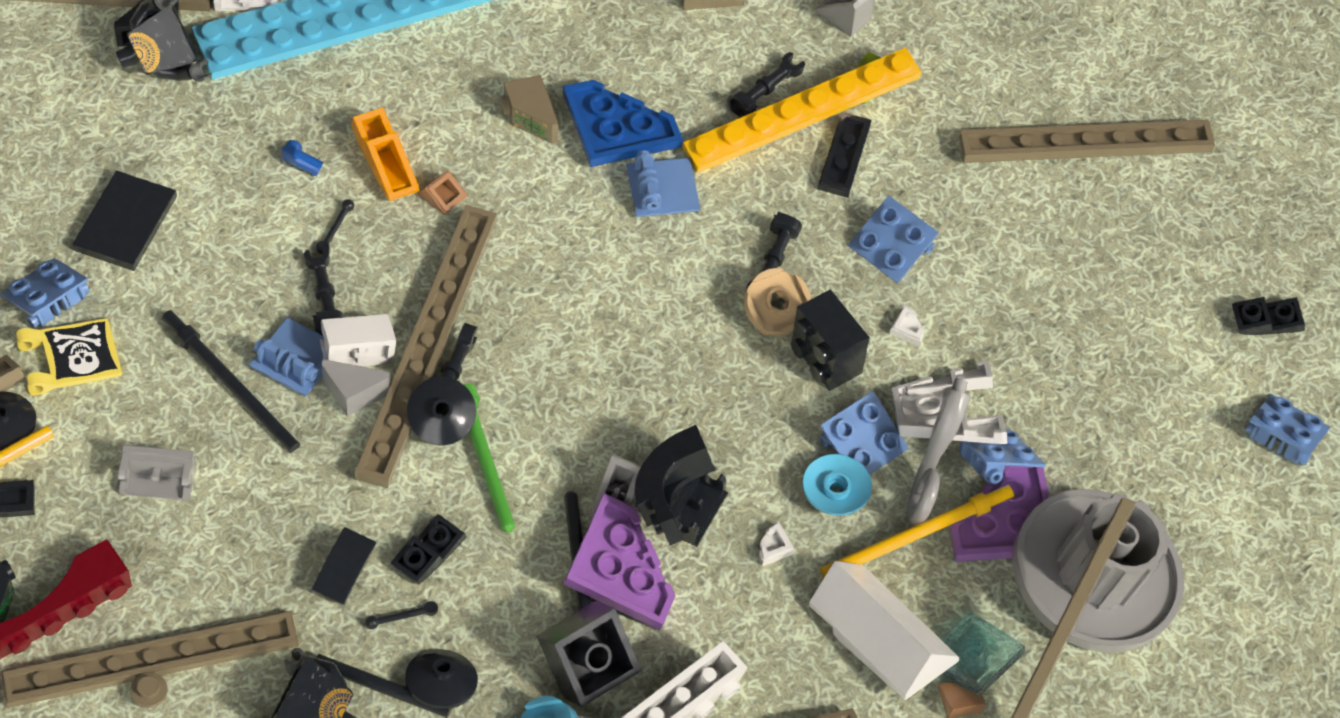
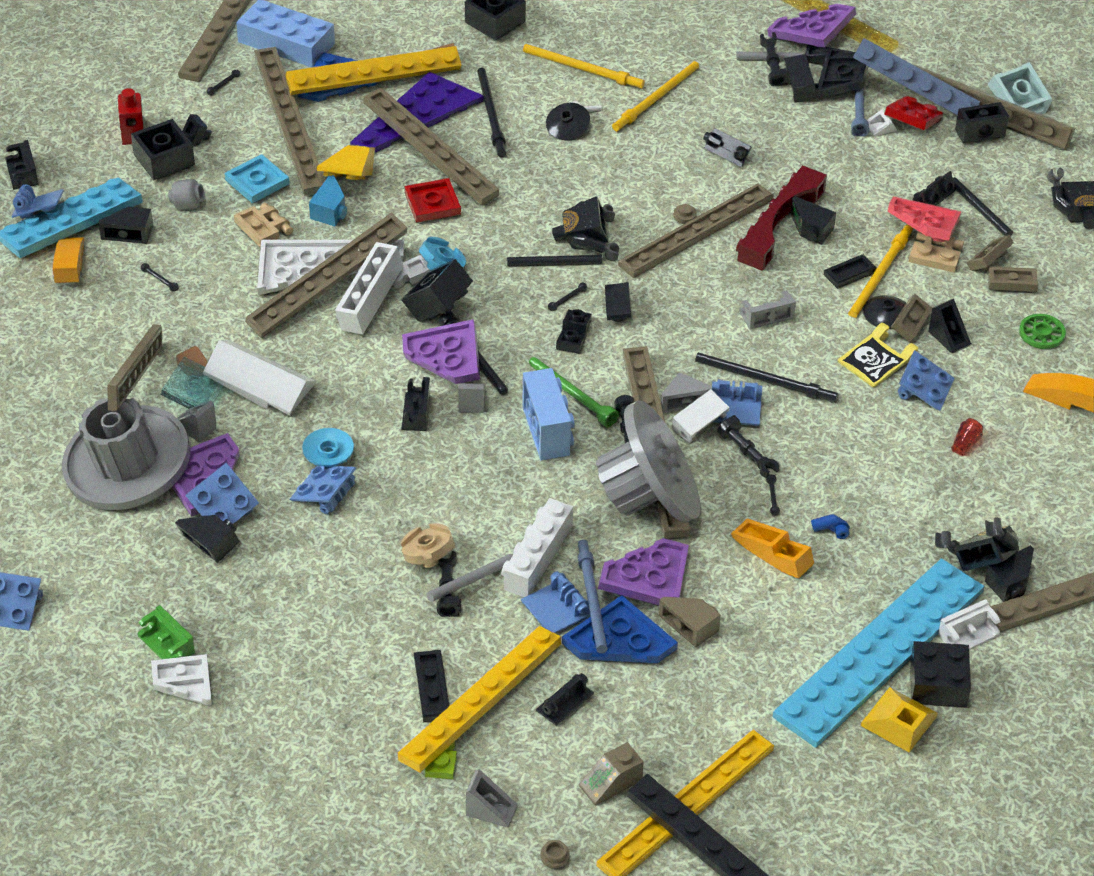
camera: 160 degrees right, 10 degrees down
(58, 199) = (967, 435): none -> clear red cone
(124, 220) = (914, 445): black tile -> none
(436, 428) = (615, 391): black dish -> none
(441, 679) = (522, 279): black dish -> none
(443, 192) = (716, 543): medium nougat slope -> none
(483, 244) = (649, 468): none -> light grey piece
(545, 170) = (647, 572): none -> medium lavender plate
(547, 403) = (547, 414): none -> light blue brick
(603, 221) = (586, 563): none -> sand blue bar
(651, 248) = (537, 548): none -> white brick
(665, 473) = (443, 378): black arch -> none
(714, 83) = (566, 699): none -> black hinge
(744, 103) = (532, 689): black piece -> none
(746, 244) = (467, 579): none -> light grey bar
(775, 545) = (354, 408): white tile -> none
(829, 340) = (374, 519): black brick -> none
(894, 239) = (365, 627): medium blue hinge -> none
(908, 327) = (324, 574): white tile -> none
(919, 403) = (281, 509): white wing -> none
(946, 426) = (264, 467): light grey plant -> none
(977, 505) = (226, 456): yellow bar -> none
(991, 593) = (199, 420): none -> light grey slope
(1031, 414) = (209, 534): none -> black slope
(1086, 141) = (235, 767): dark tan plate -> none
(1113, 258) = (183, 678): none -> white wing
(1116, 311) = (165, 635): none -> bright green hinge
(1264, 318) = (50, 679): black slope -> none

